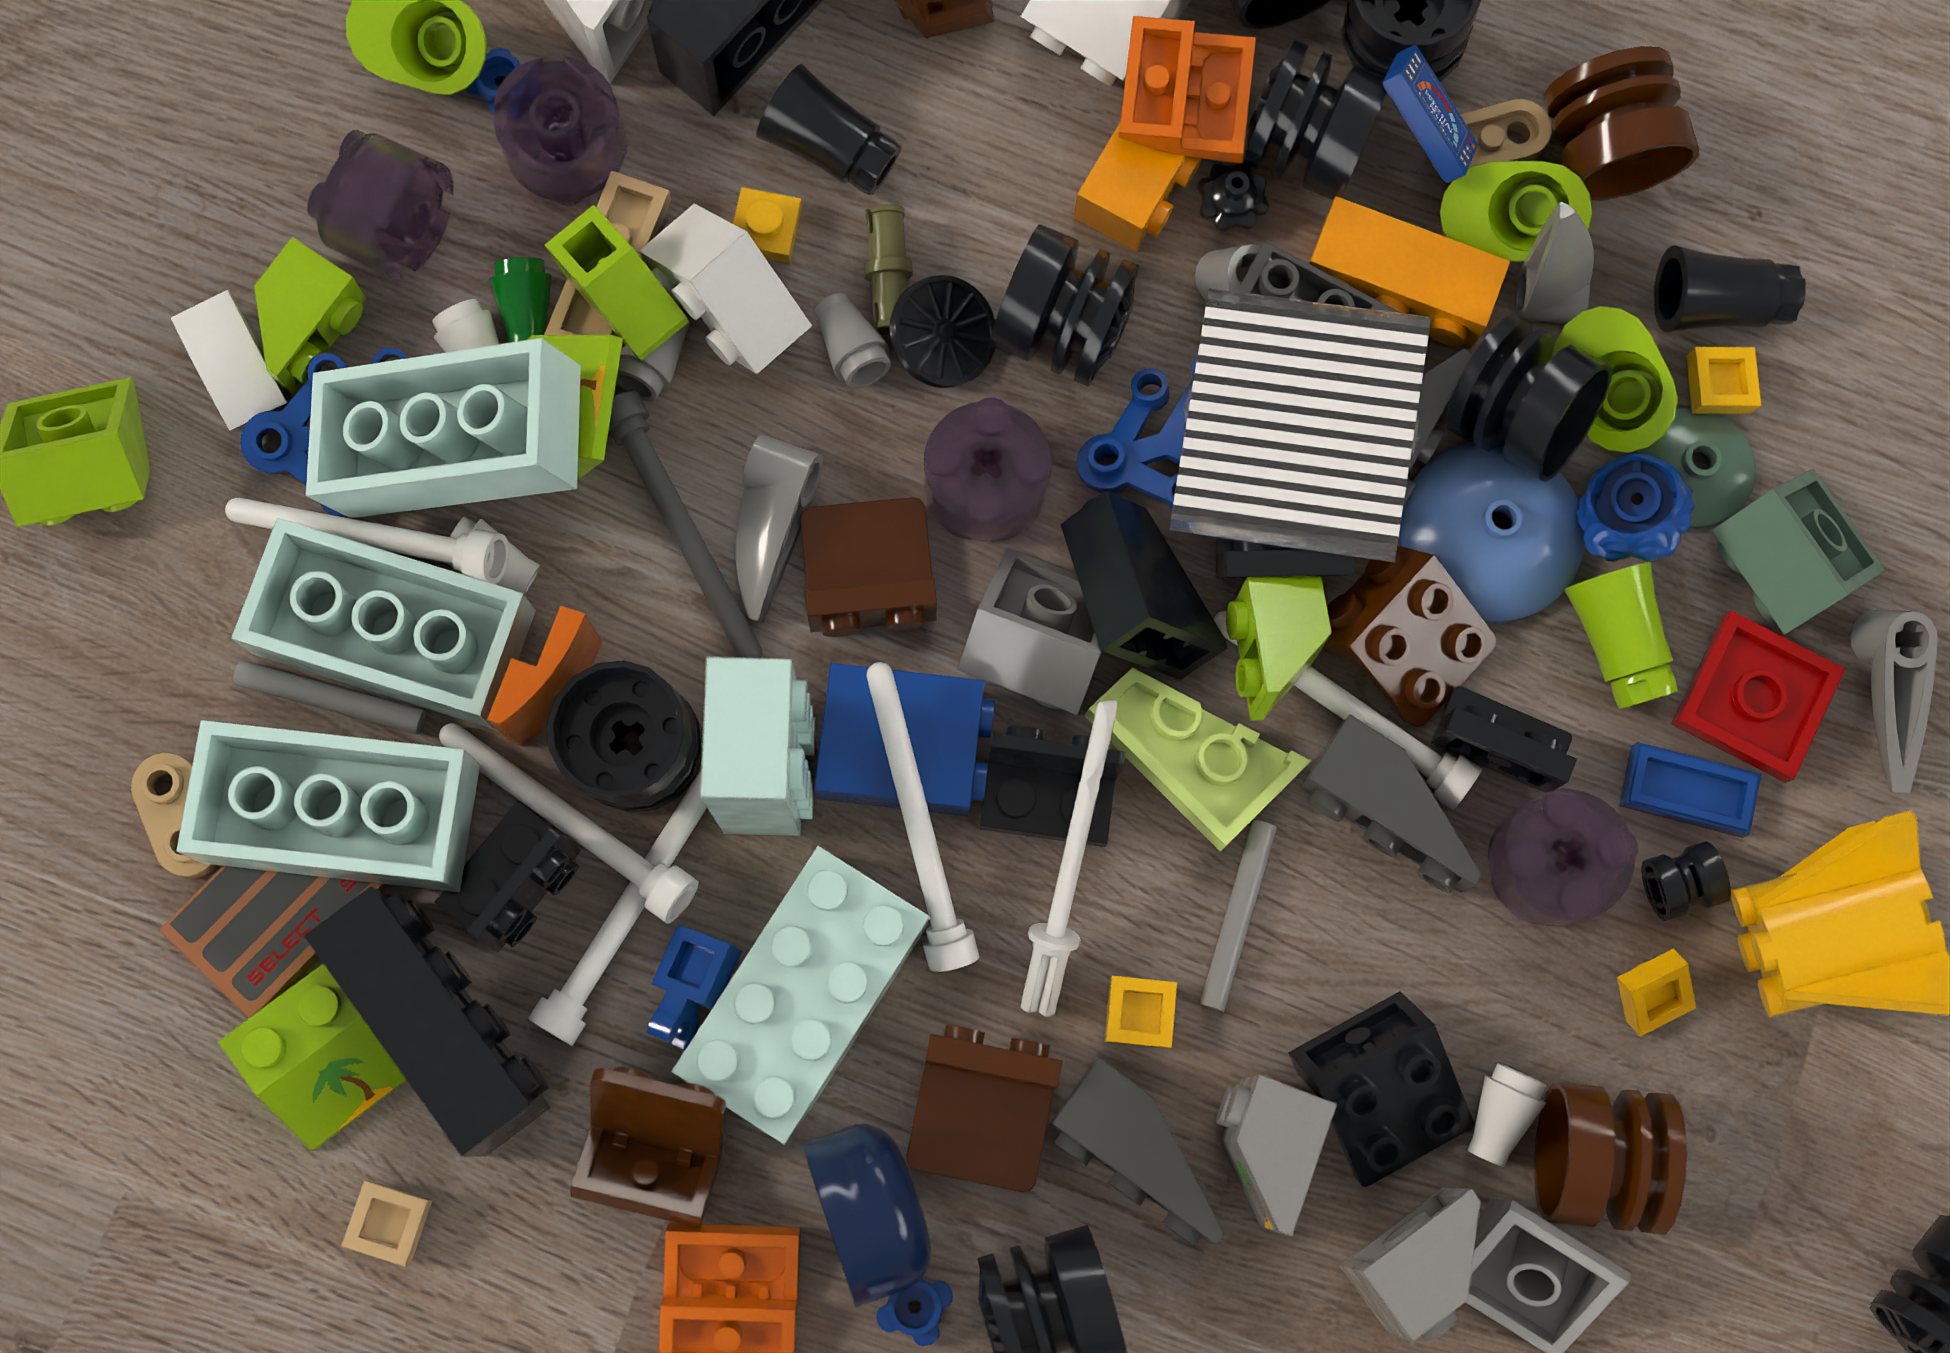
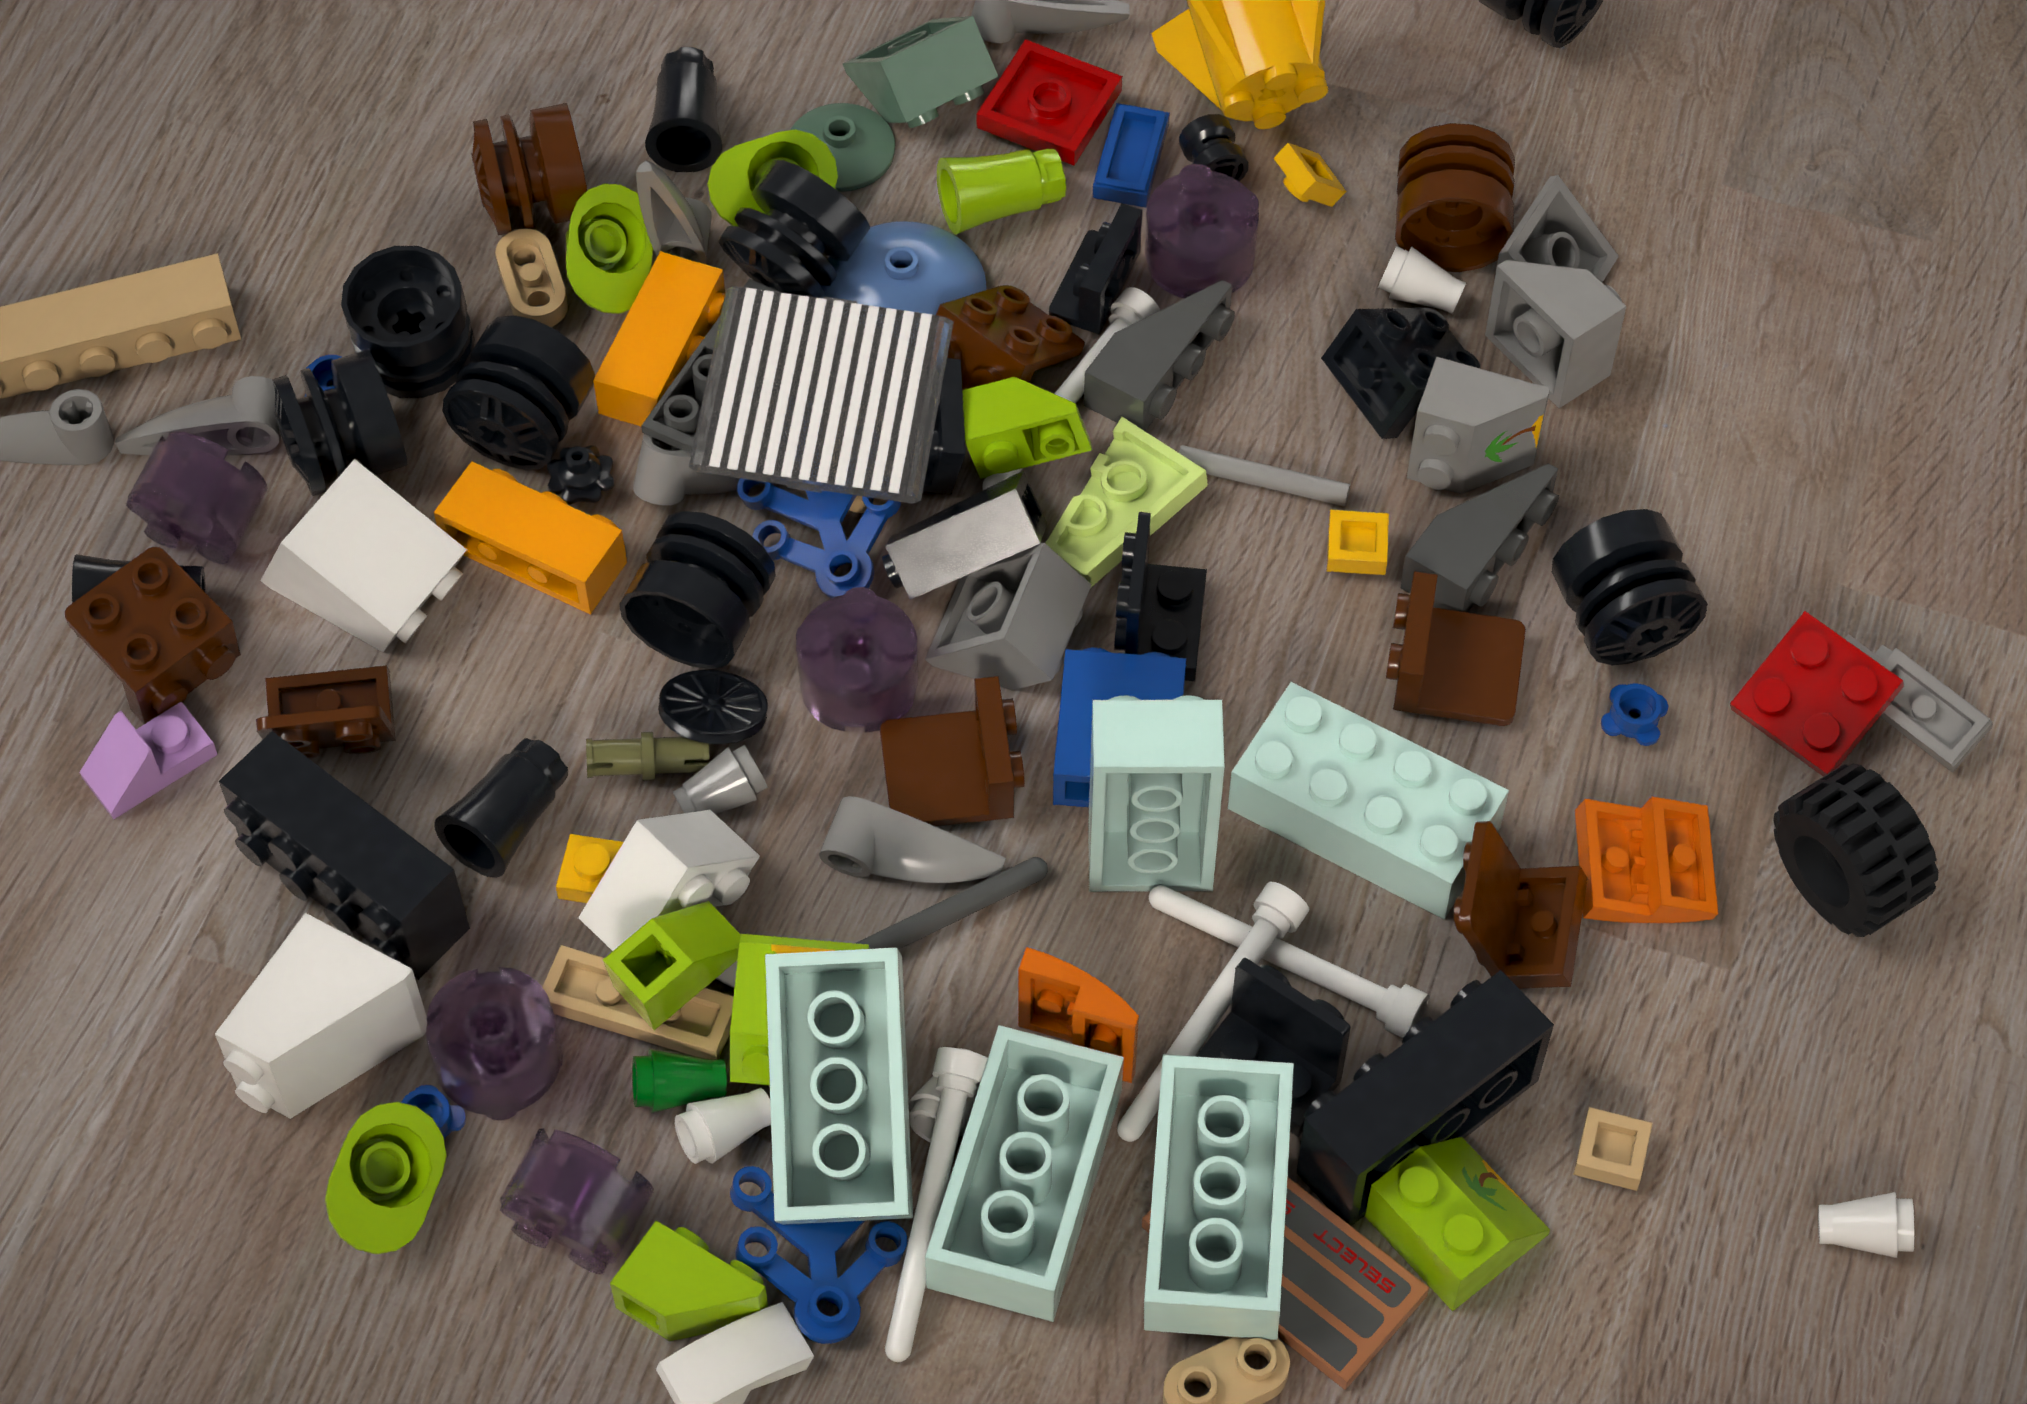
camera: 85 degrees left, 20 degrees down
(329, 697) = (1095, 1246): light grey bar -> none
(590, 728) = (1137, 912): black wheel -> none
(692, 974) = (1353, 893): blue plate -> none
(870, 1210) = (1563, 726): dark blue piece -> none
(948, 940) = (1313, 677): white piece -> none
(1053, 939) = (1301, 598): white piece -> none
(1187, 89) = (487, 483): orange slope -> none
(1430, 114) = (523, 296): blue tile -> none
(1642, 531) = (902, 164): blue hair -> none
(1723, 380) = (764, 112): yellow plate -> none

